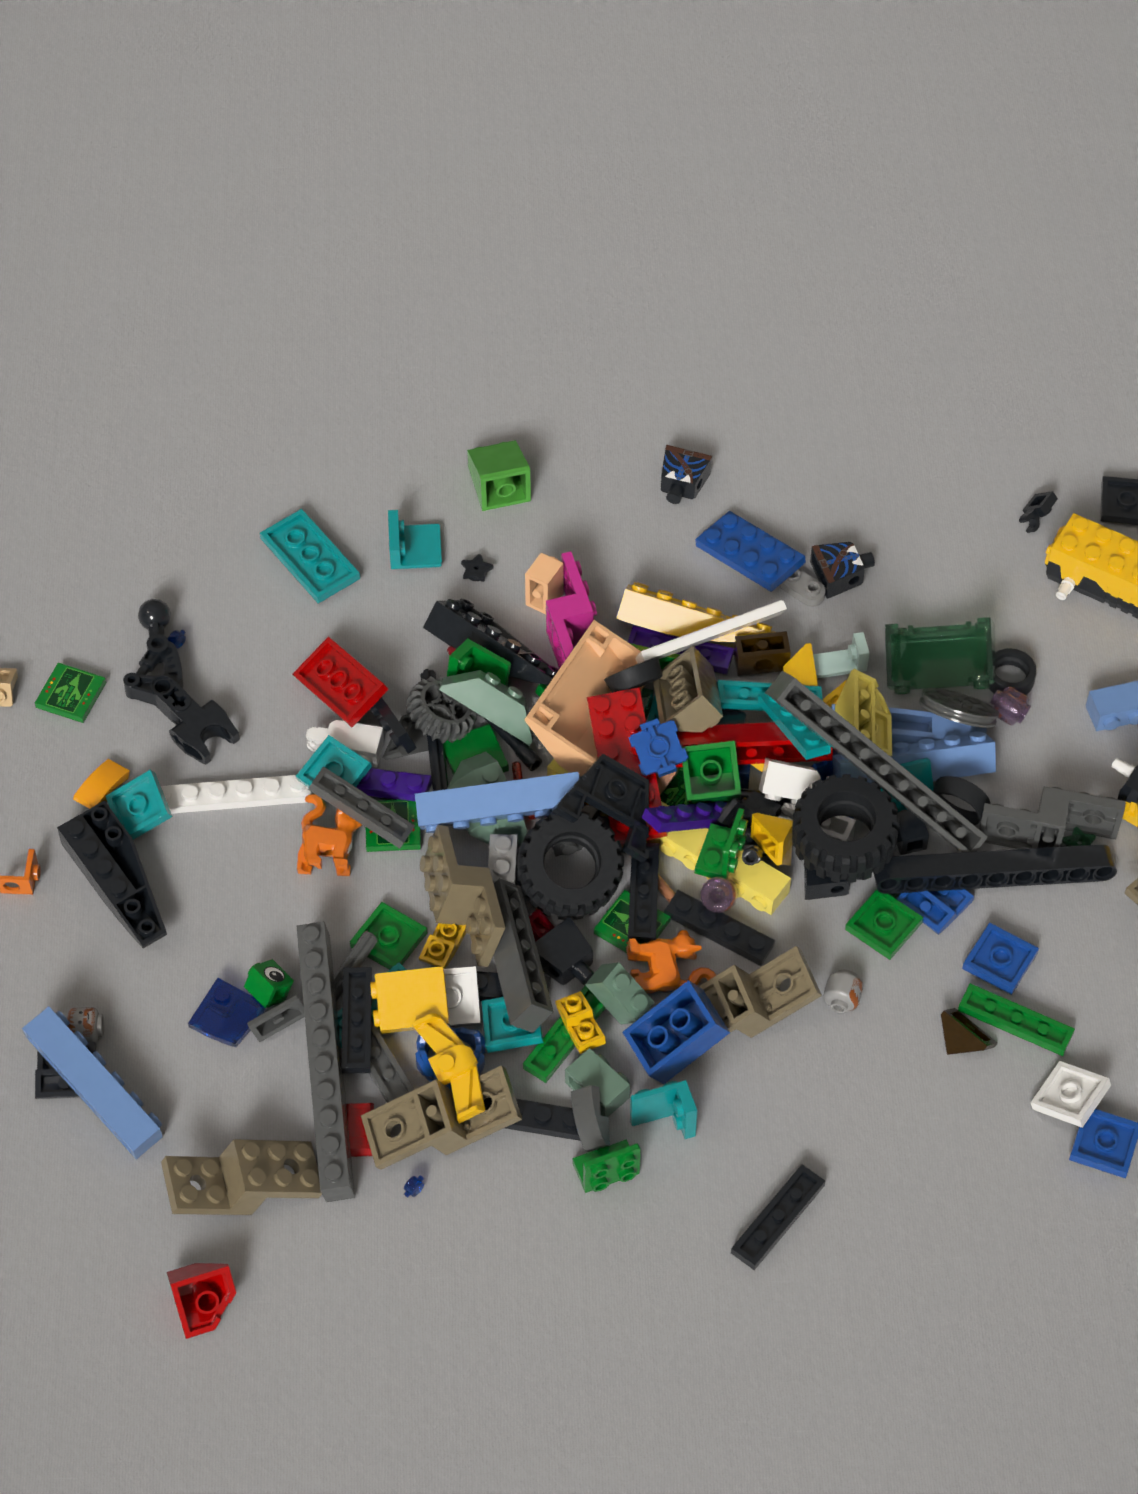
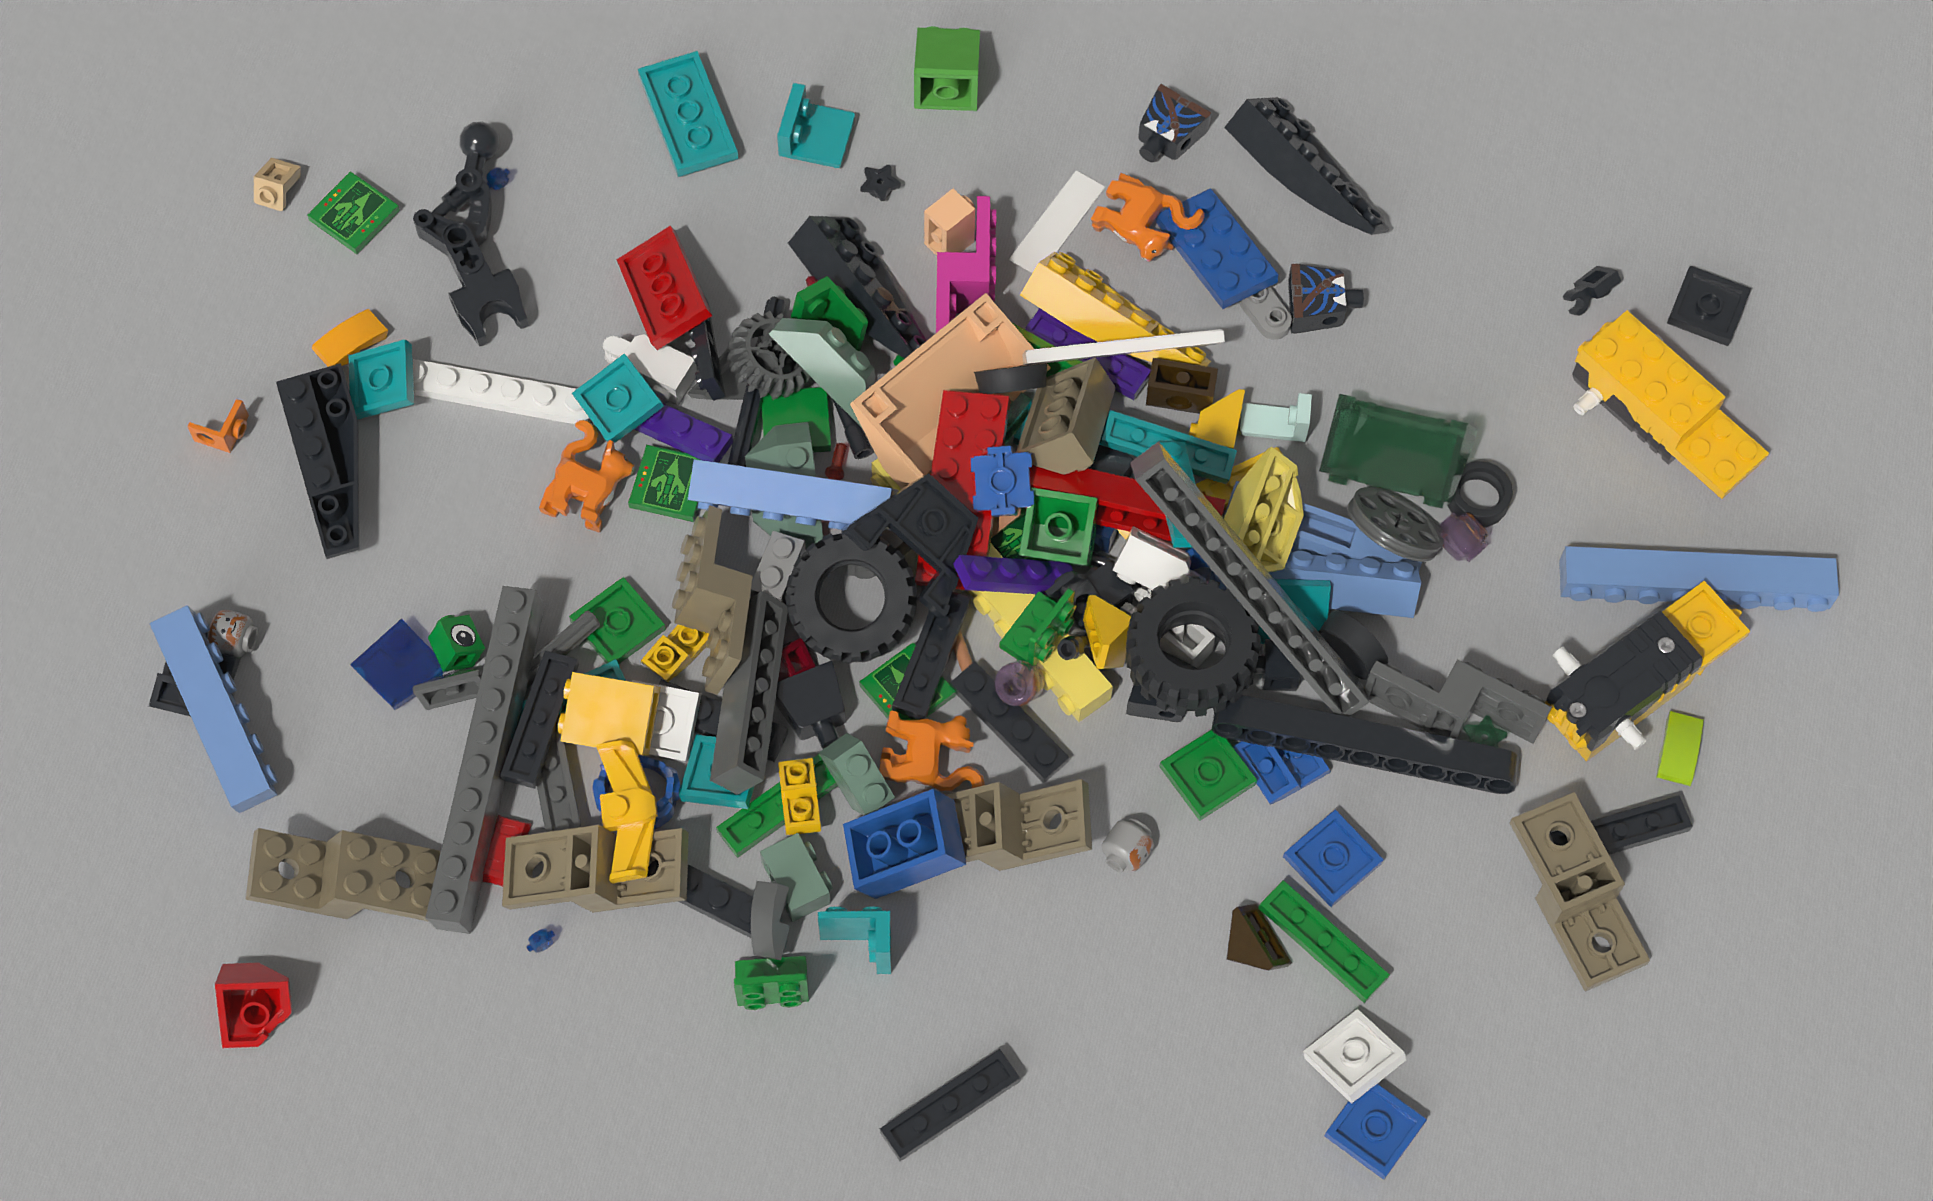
camera: 15 degrees right, 10 degrees up
(361, 807) = (632, 455): dark grey plate -> none
(621, 564) = (1057, 221): none -> white sticker
(683, 539) = (1138, 213): none -> orange animal
(790, 476) = (1301, 162): none -> black wedge

